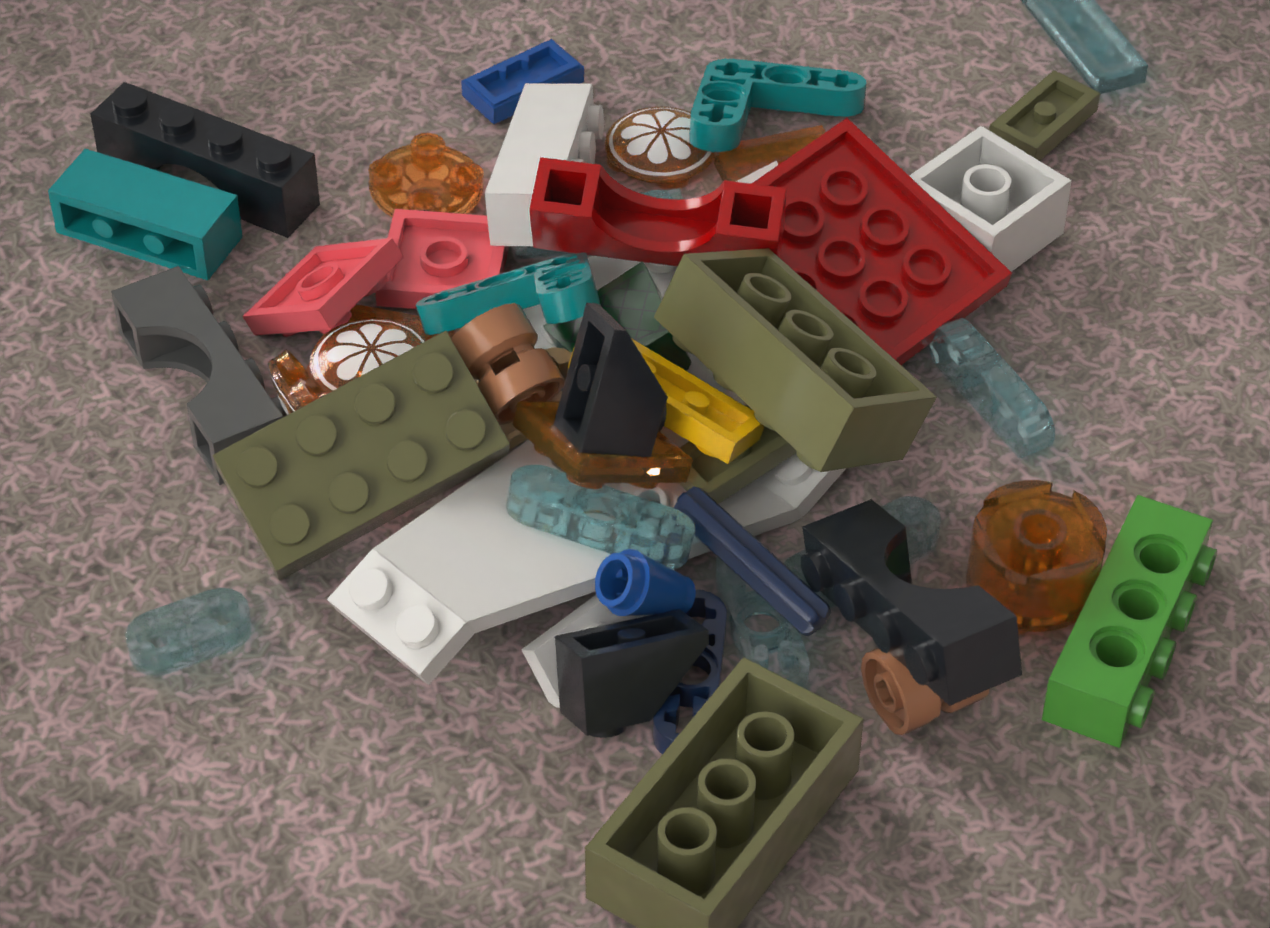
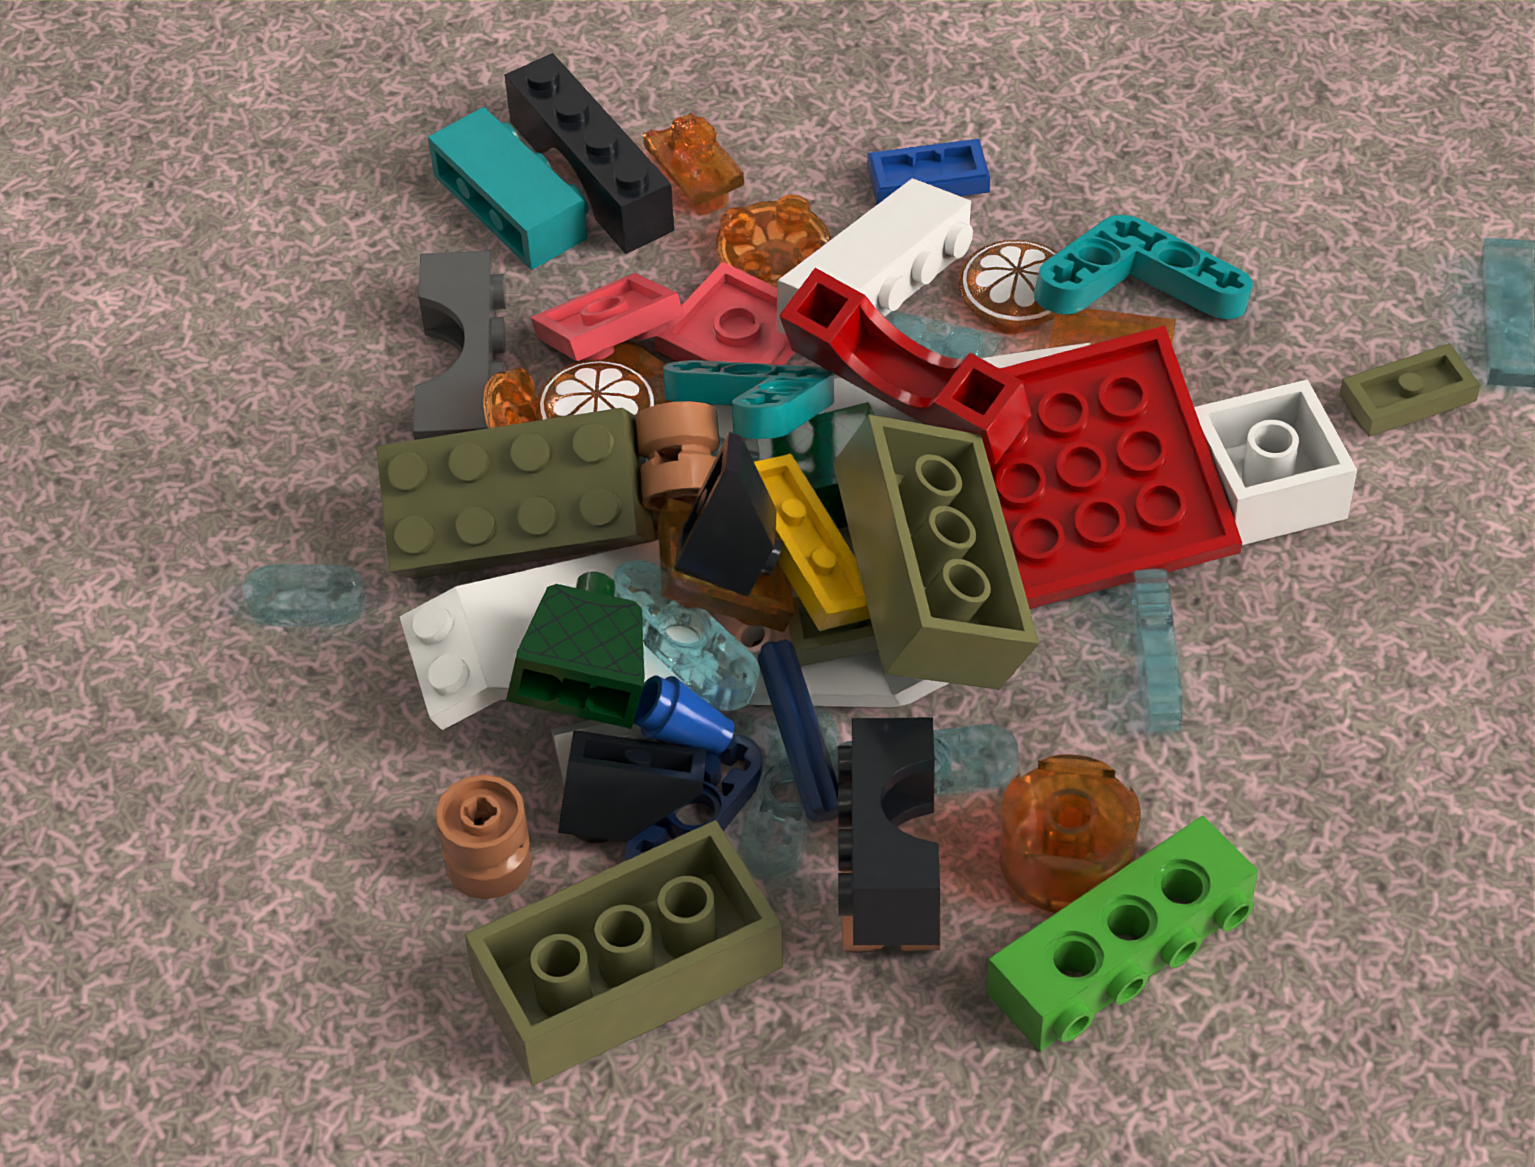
camera: 30 degrees right, 5 degrees up
(310, 127) = (695, 162): none -> clear orange hips
(524, 765) = (484, 836): none -> nougat wheel
(540, 559) = (582, 654): none -> dark green torso

